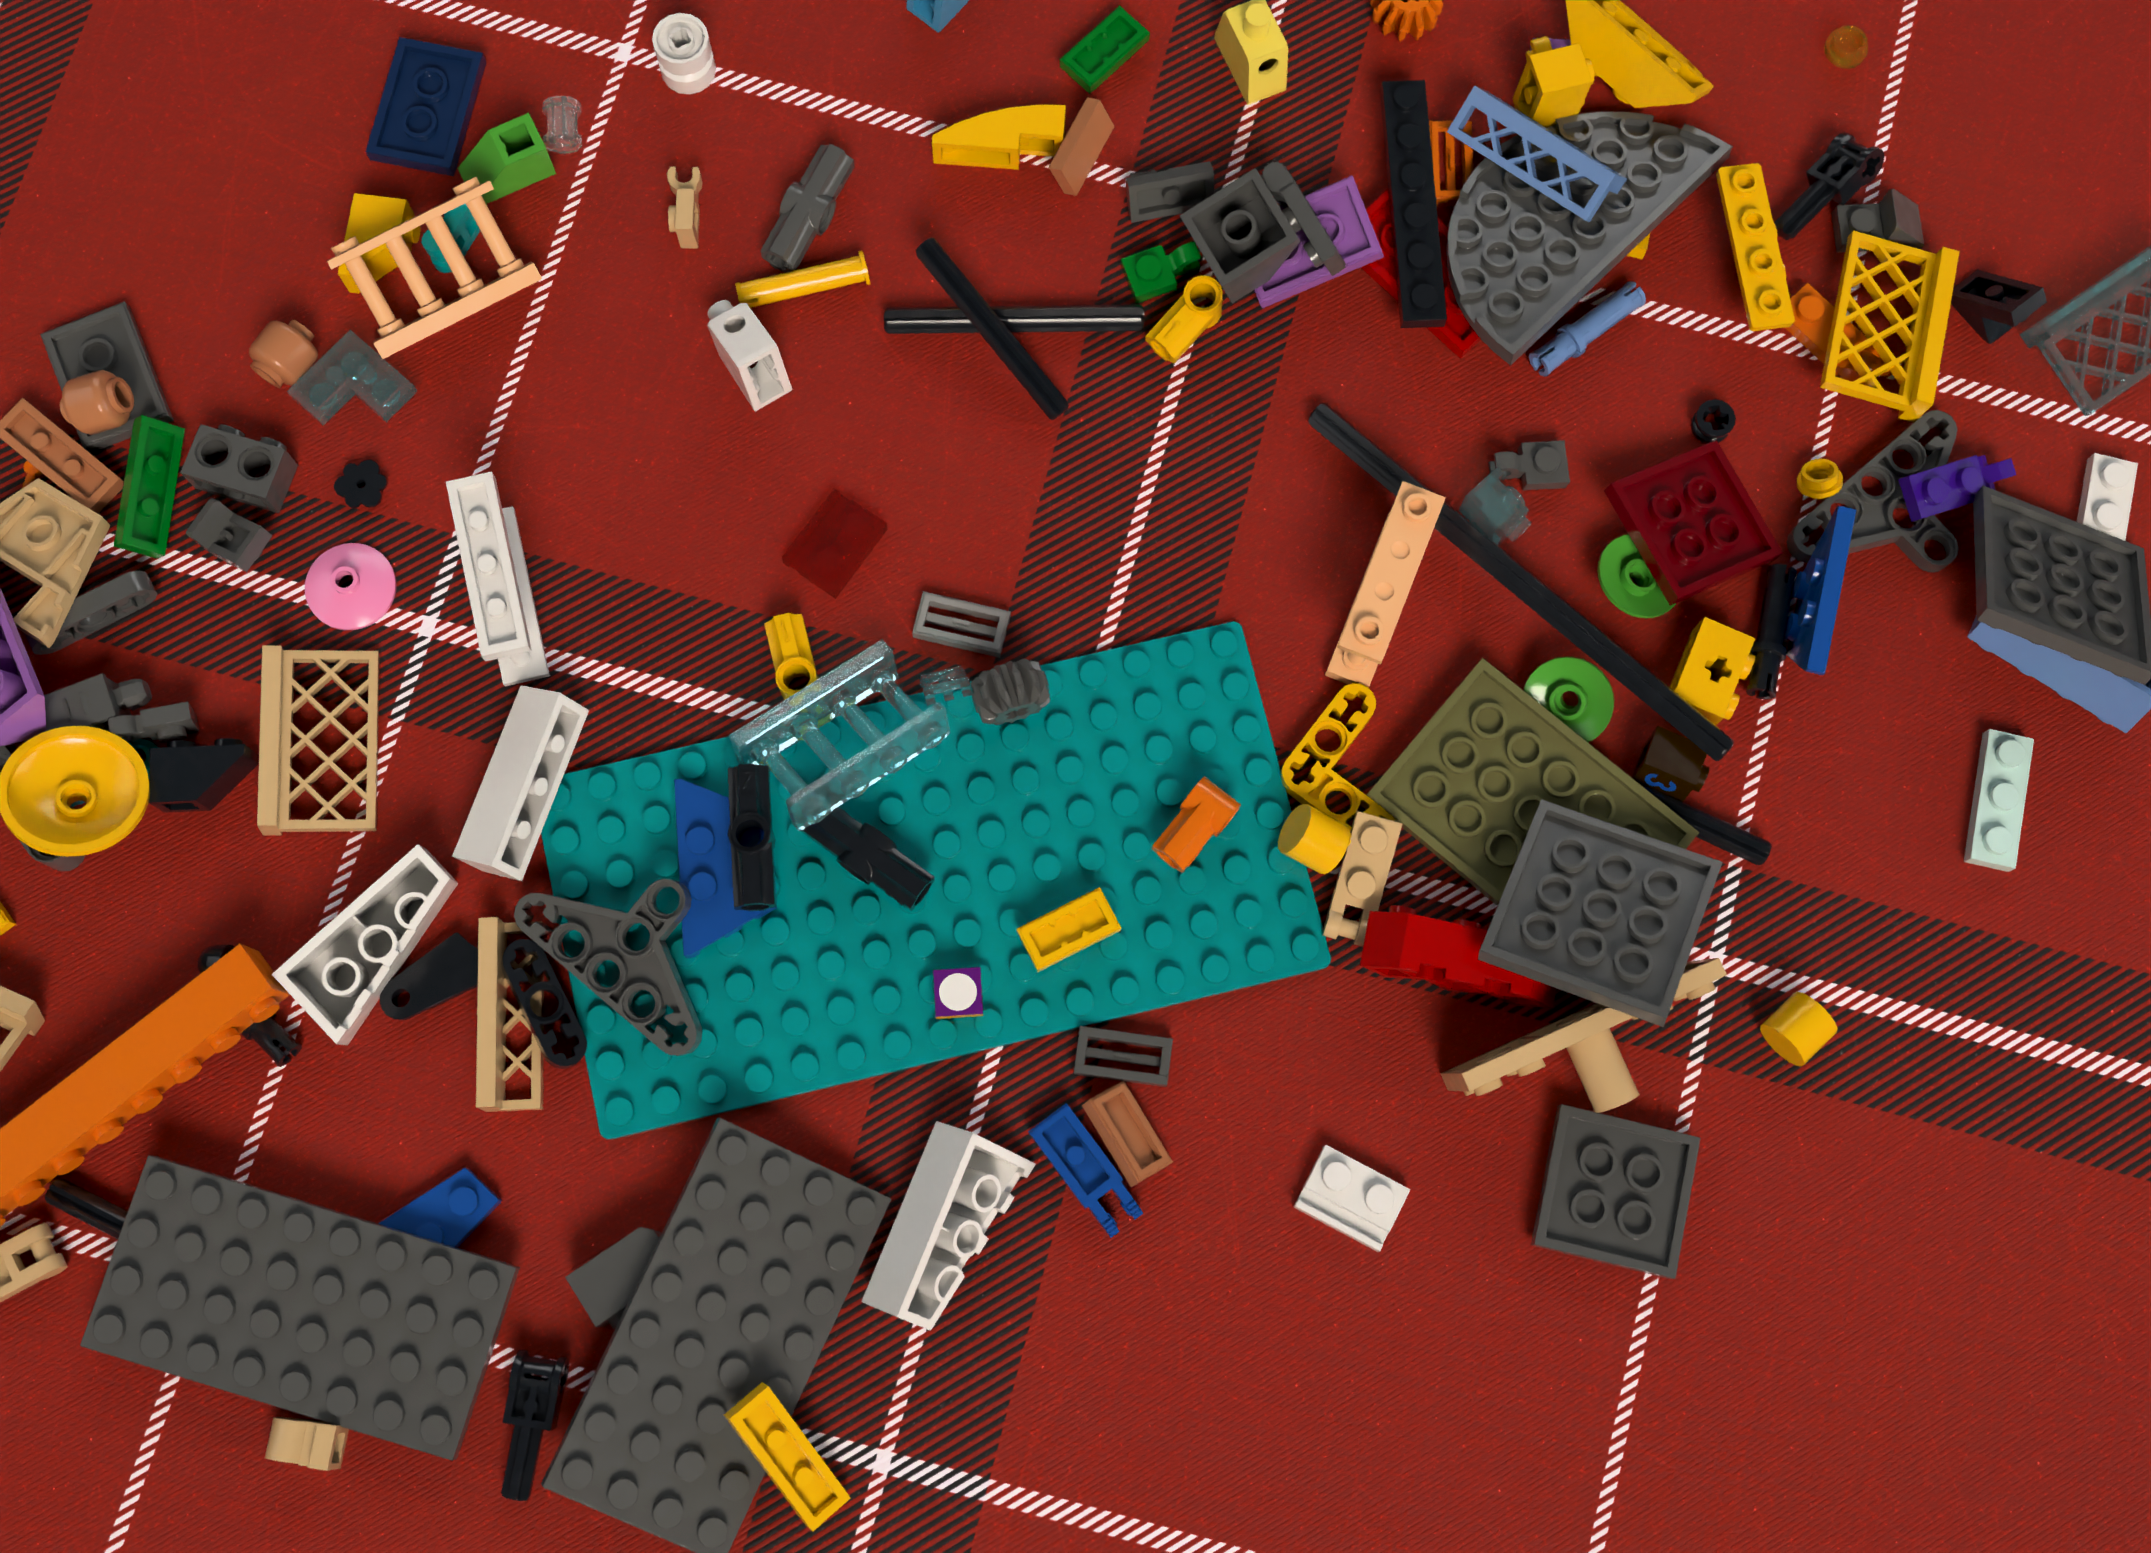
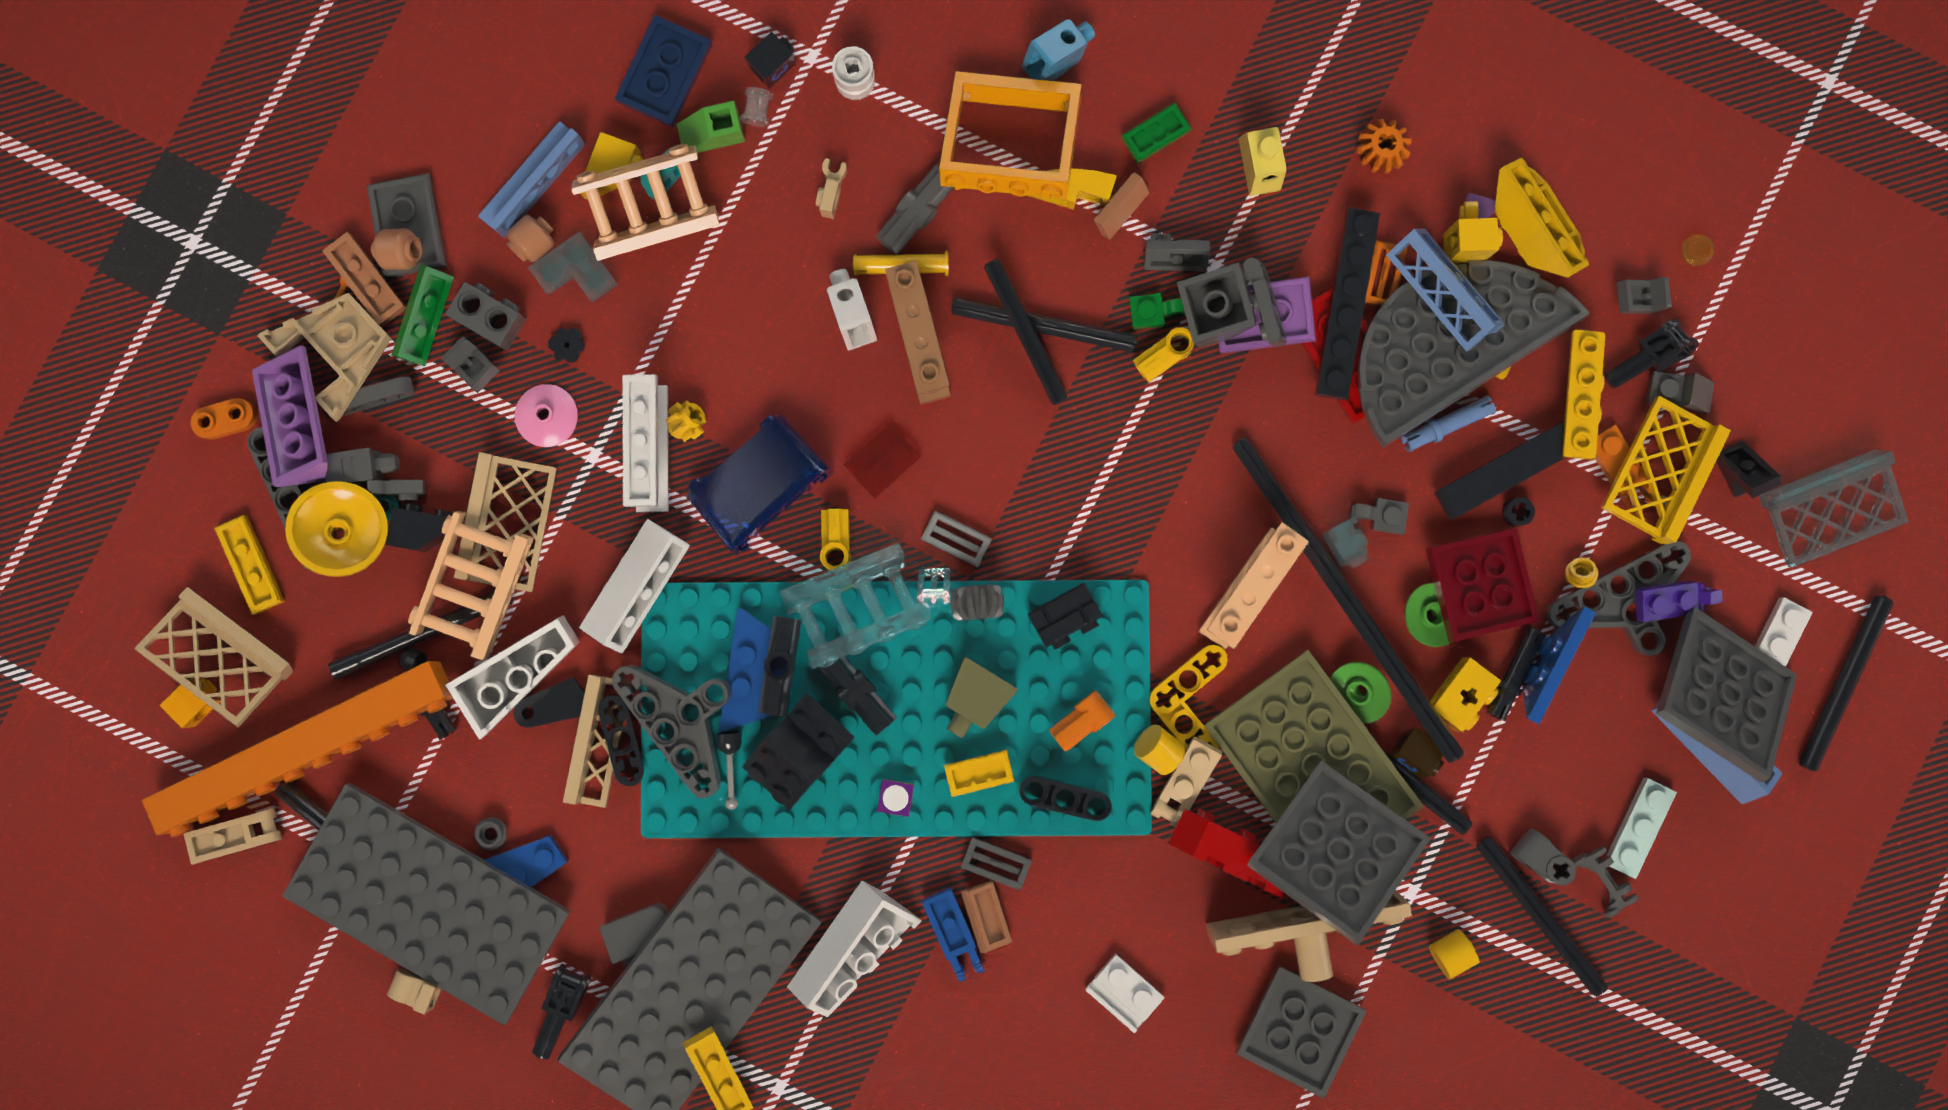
camera: 20 degrees right, 10 degrees up
(138, 980) = (358, 660): none -> black piece
(273, 278) = (532, 179): none -> medium blue fence
(321, 857) = (492, 609): none -> light nougat fence
(364, 1184) = (481, 833): none -> dark grey plate
(548, 545) = (685, 421): none -> yellow gear
(568, 61) = (771, 59): none -> black brick
(666, 605) = (757, 483): none -> clear blue windscreen
(702, 971) = (729, 743): none -> hinge
(803, 953) = (798, 751): none -> black bracket
(846, 355) = (918, 332): none -> medium nougat fence
(909, 35) = (1018, 93): none -> light orange window
(1040, 823) = (976, 697): none -> olive torso
(1137, 686) = (1065, 616): none -> black brick
(1218, 923) = (1077, 808): none -> black beam
(1677, 374) = (1502, 473): none -> black beam
(1795, 116) = (1643, 295): none -> dark grey bracket
(1876, 867) = (1540, 855): none -> dark grey piece
(1904, 951) = (1542, 916): none -> black axle
(1998, 902) = (1617, 900): none -> dark grey piece

